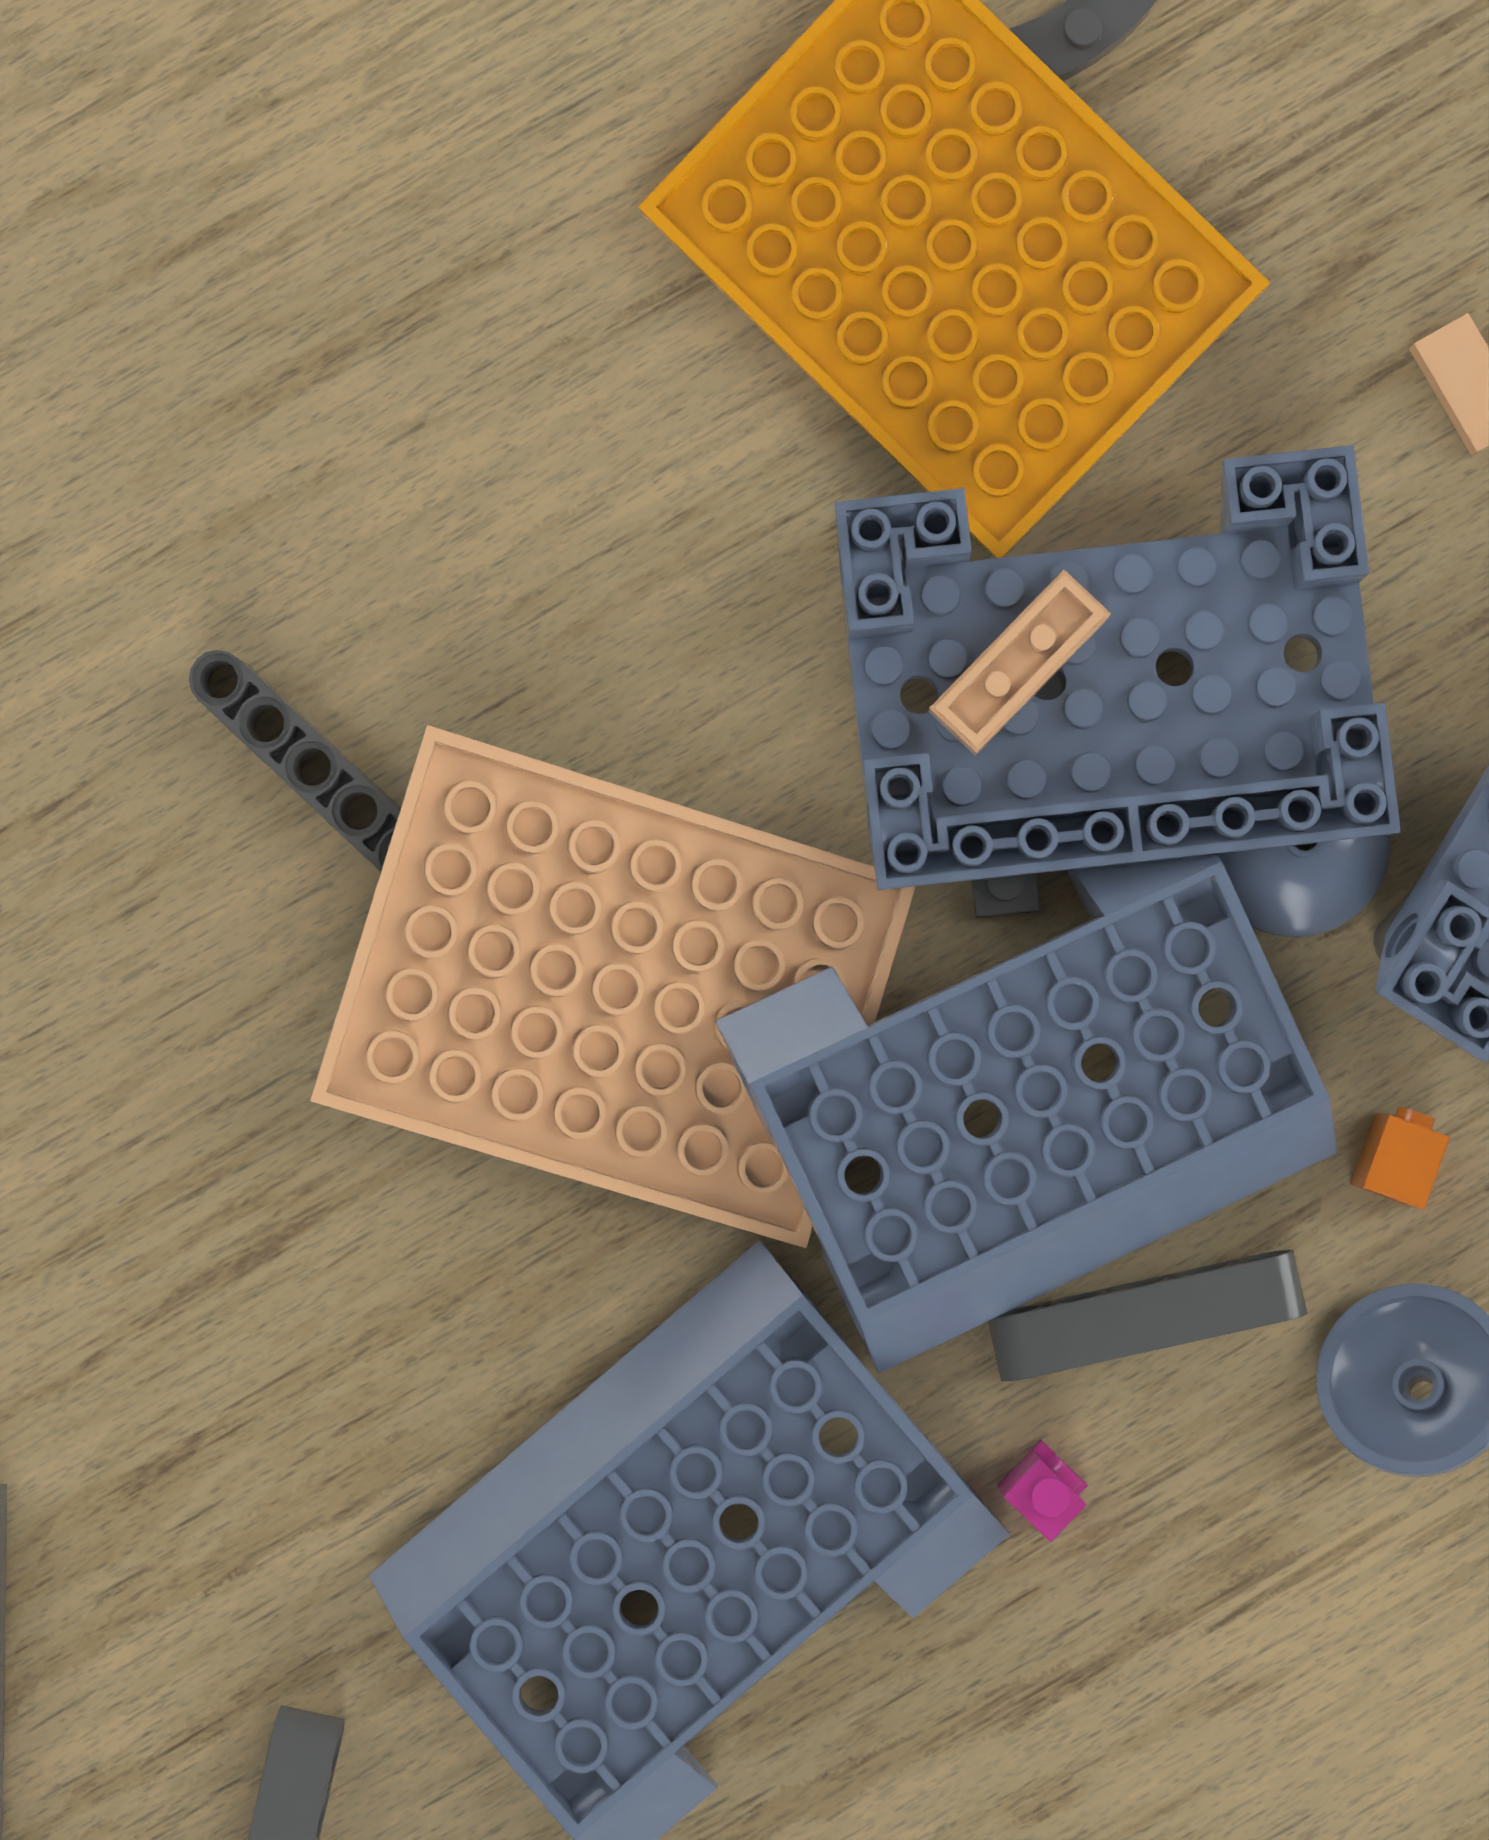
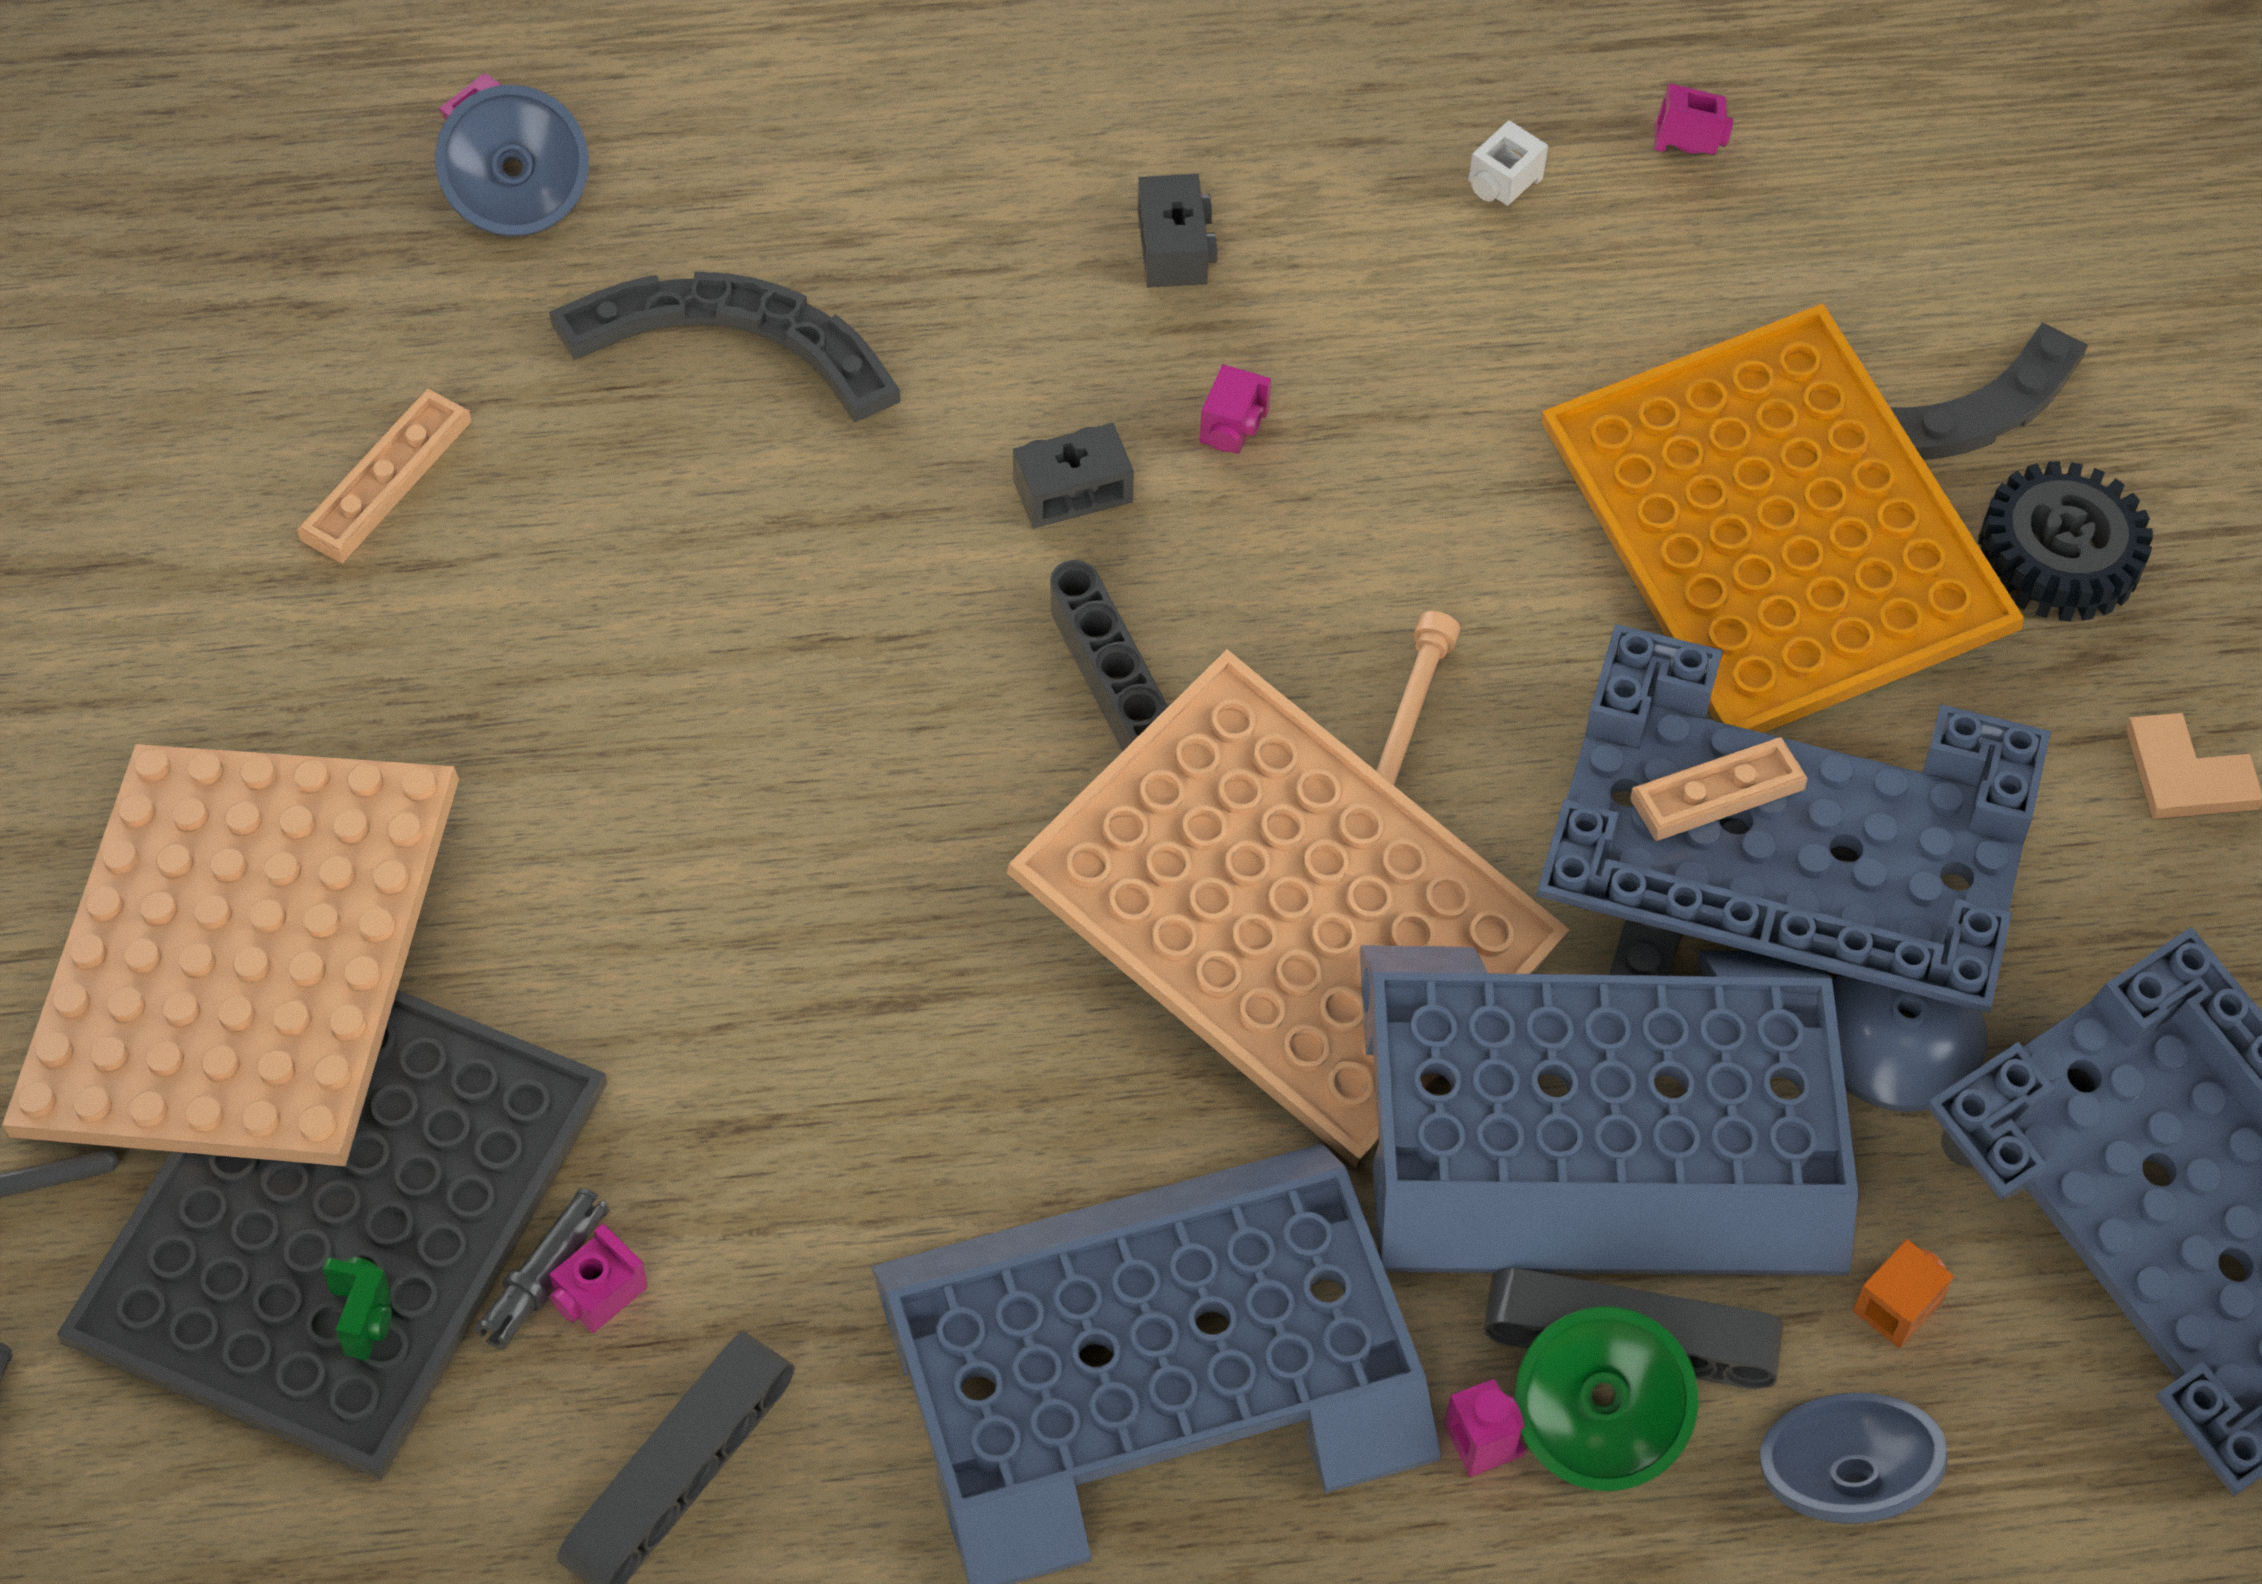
camera: 25 degrees right, 30 degrees down
(44, 1721) = (527, 1288): none -> dark grey pin
(96, 95) = (1174, 230): none -> dark grey brick
(120, 1698) = (598, 1299): none -> dark pink brick
(180, 504) = (1073, 475): none -> dark grey brick
(292, 354) = (1234, 408): none -> dark pink brick
(635, 568) = (1434, 638): none -> light nougat piece
(1159, 1443) = (1632, 1434): none -> green dish
(1231, 93) = (2063, 564): none -> wheel

